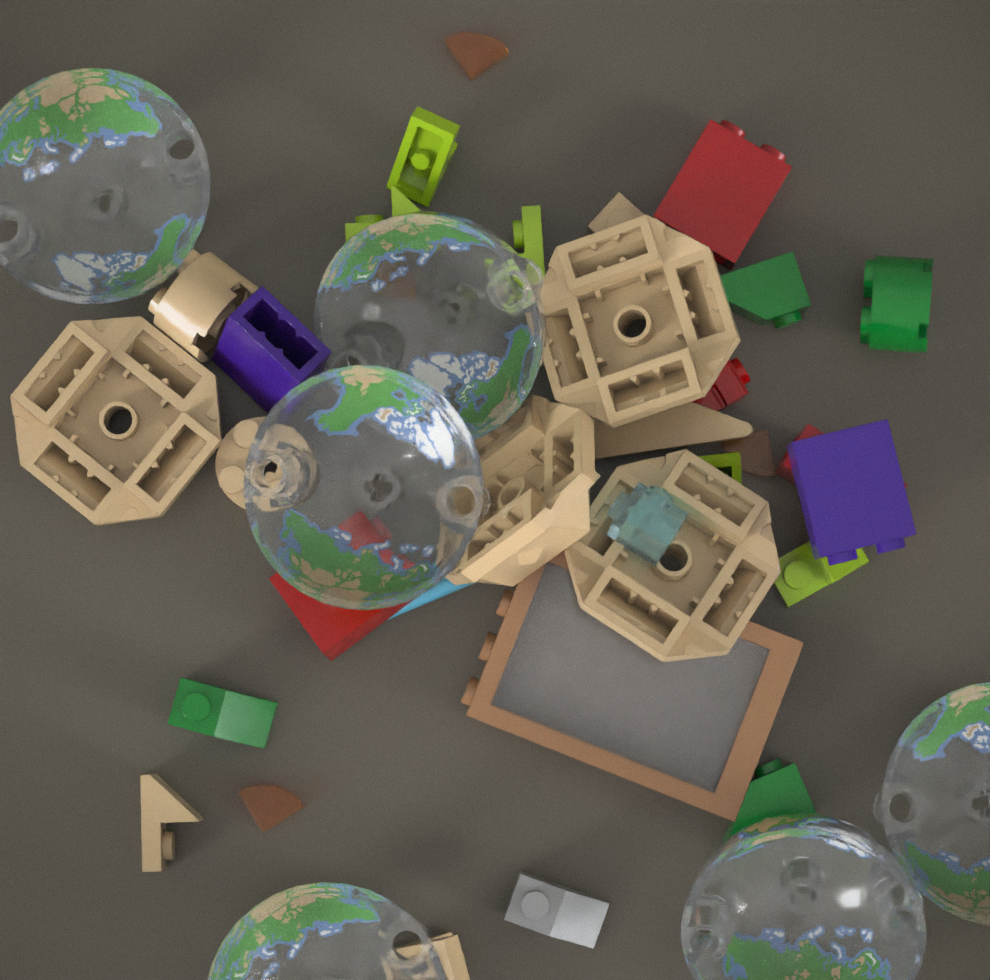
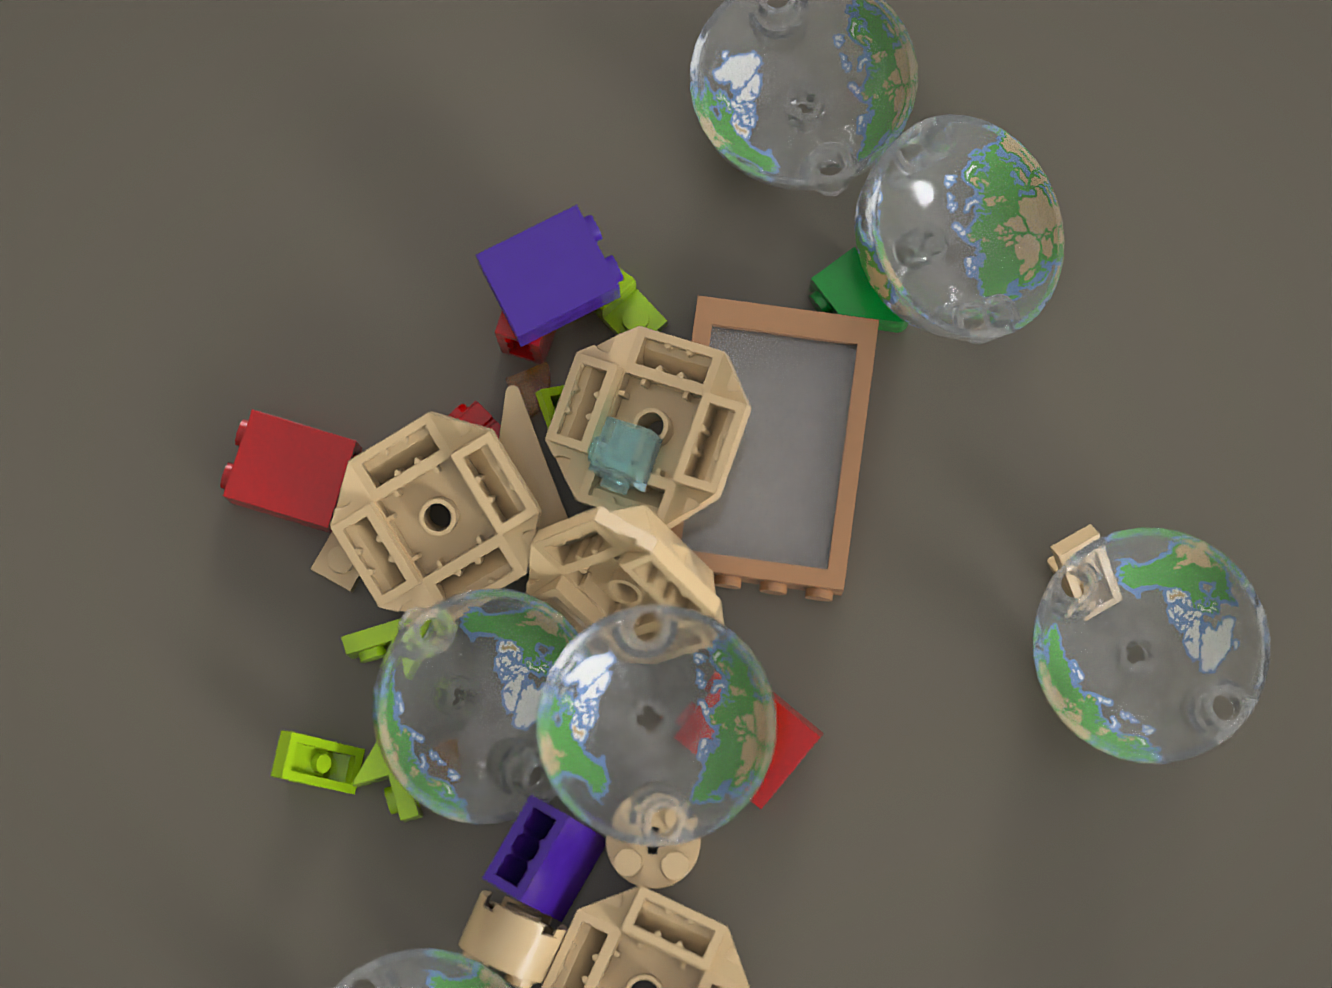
camera: 100 degrees left, 5 degrees down
(160, 806) = (1004, 861): tan slope -> none
(222, 713) = (899, 824): green slope -> none
(270, 804) = (973, 759): clear orange tile -> none
(475, 52) = (203, 739): clear orange tile -> none
(555, 910) = (1002, 468): light grey slope -> none
(768, 292) = (375, 403): green slope -> none
(900, 303) = (360, 282): green brick -> none

